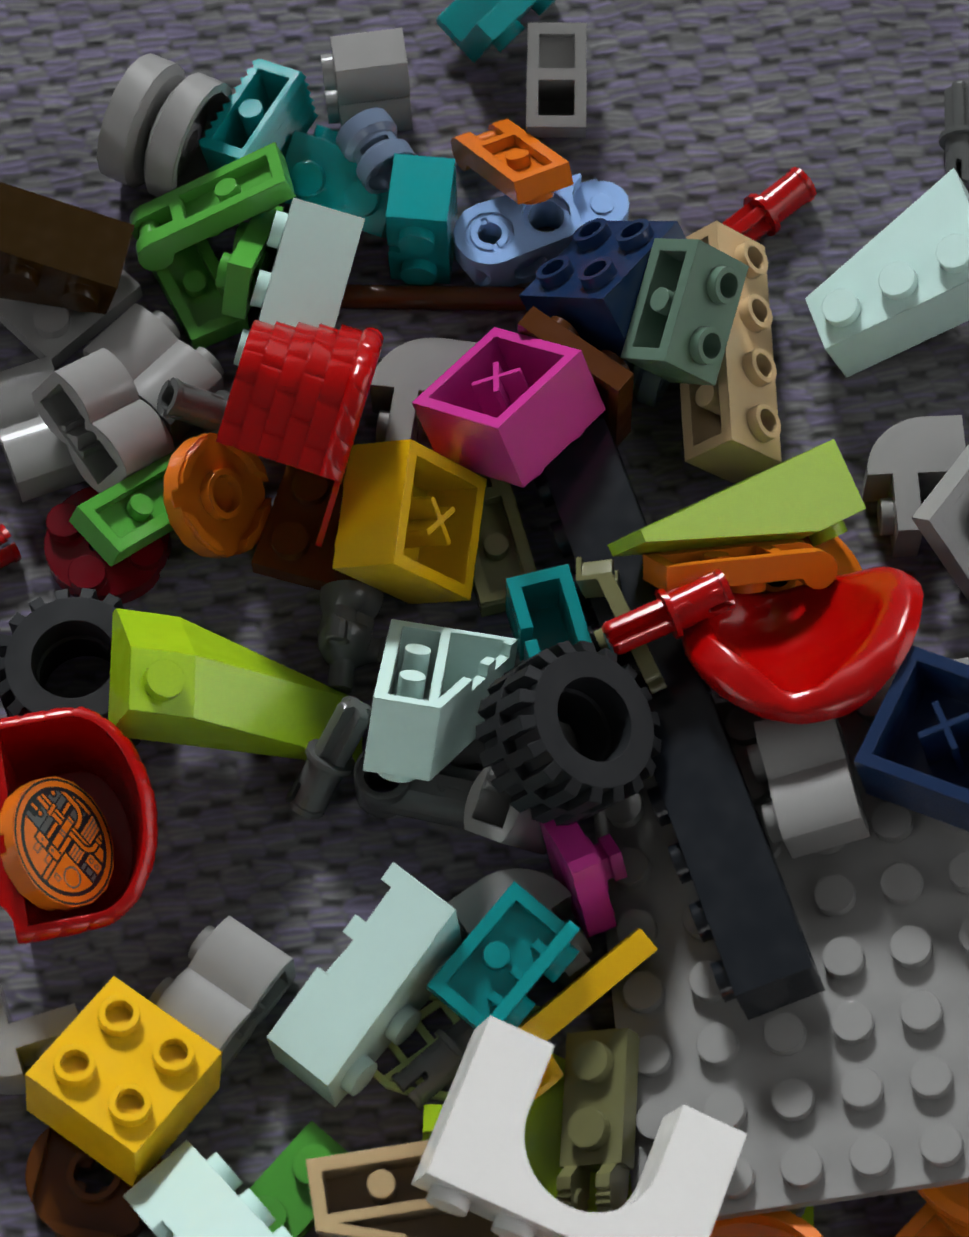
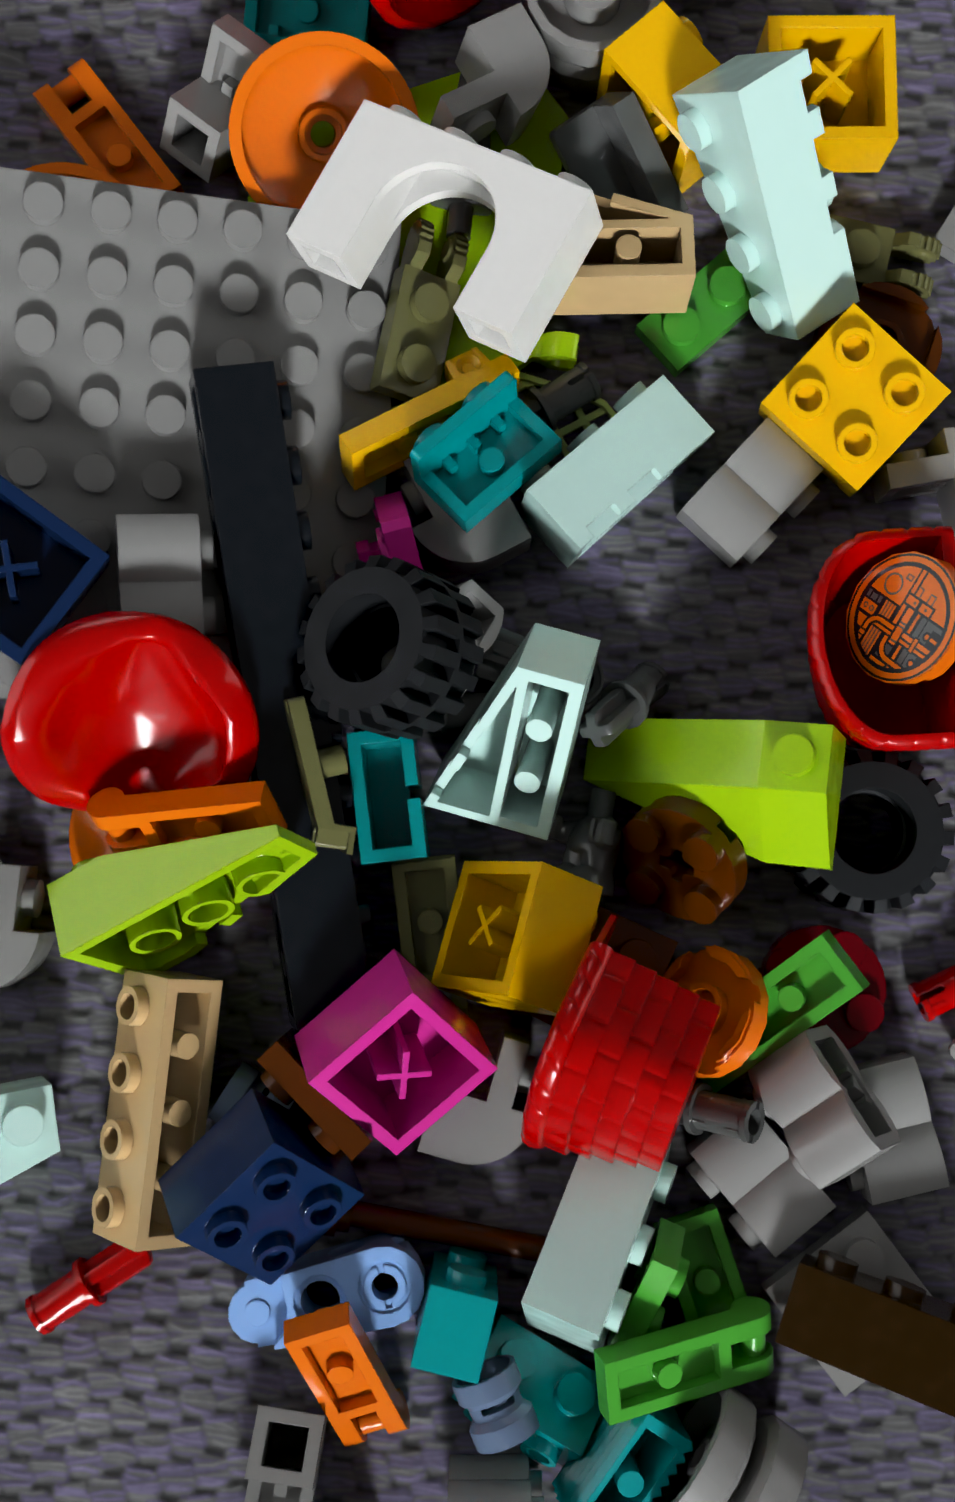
camera: 175 degrees left, 20 degrees up
(259, 624) = (662, 880): none -> reddish brown plate
(670, 613) = (267, 755): red axle -> none
(684, 311) = (188, 1127): sand green brick -> none

